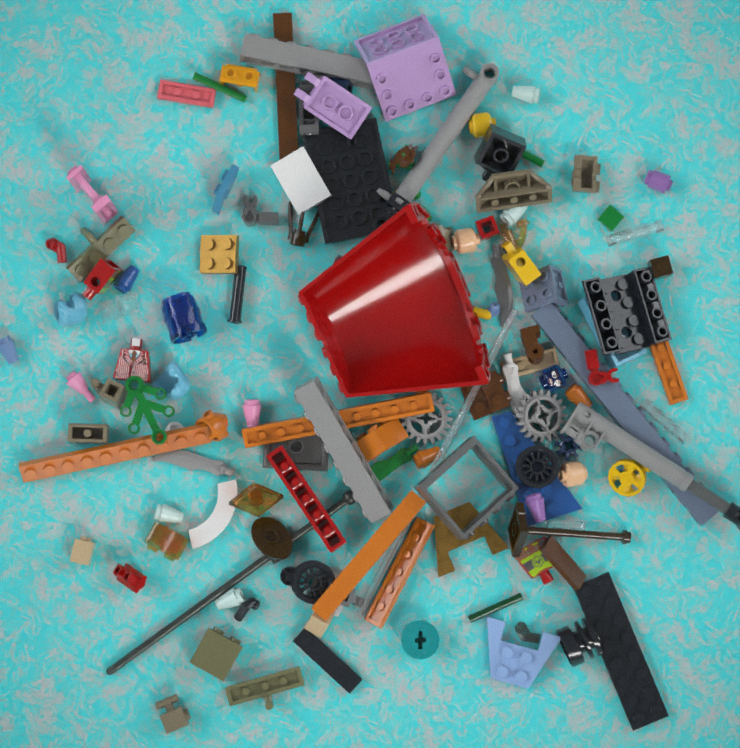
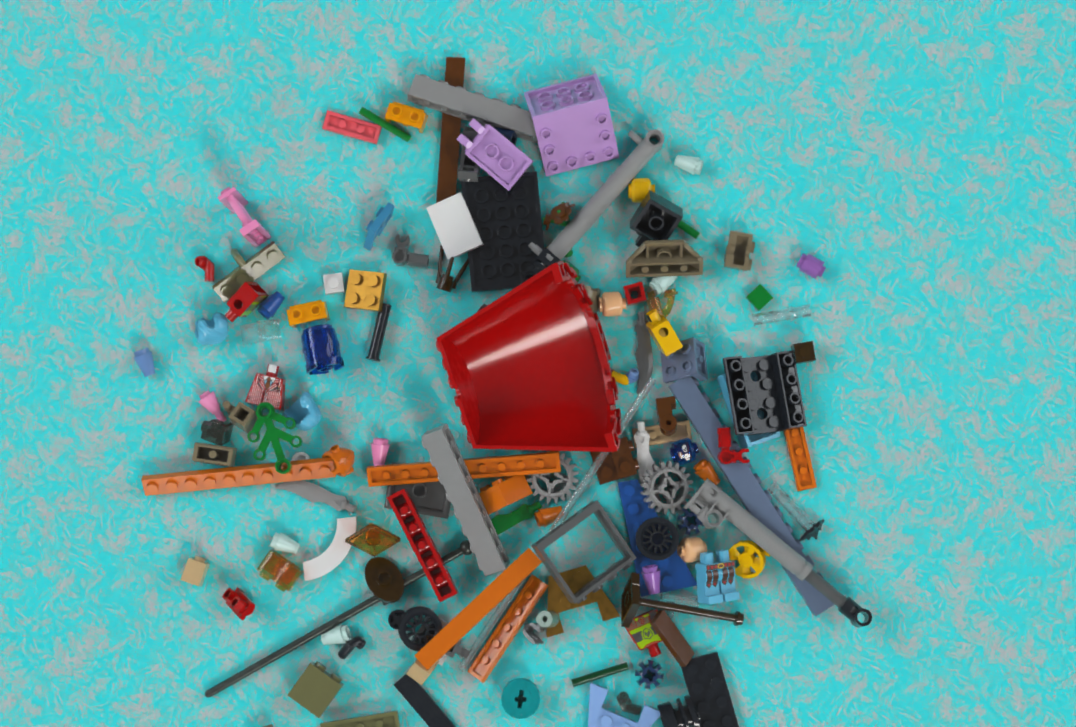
camera: 15 degrees right, 0 degrees up
(87, 410) = (216, 431): none -> clear smoke brick
(164, 282) = (307, 312): none -> light orange window
(186, 251) = (333, 283): none -> white plate
(435, 558) = (544, 619): none -> leg
(549, 604) = (655, 676): none -> dark blue piece
(599, 499) = (716, 578): none -> medium azure hips
(689, 443) = (813, 532): none -> black piece

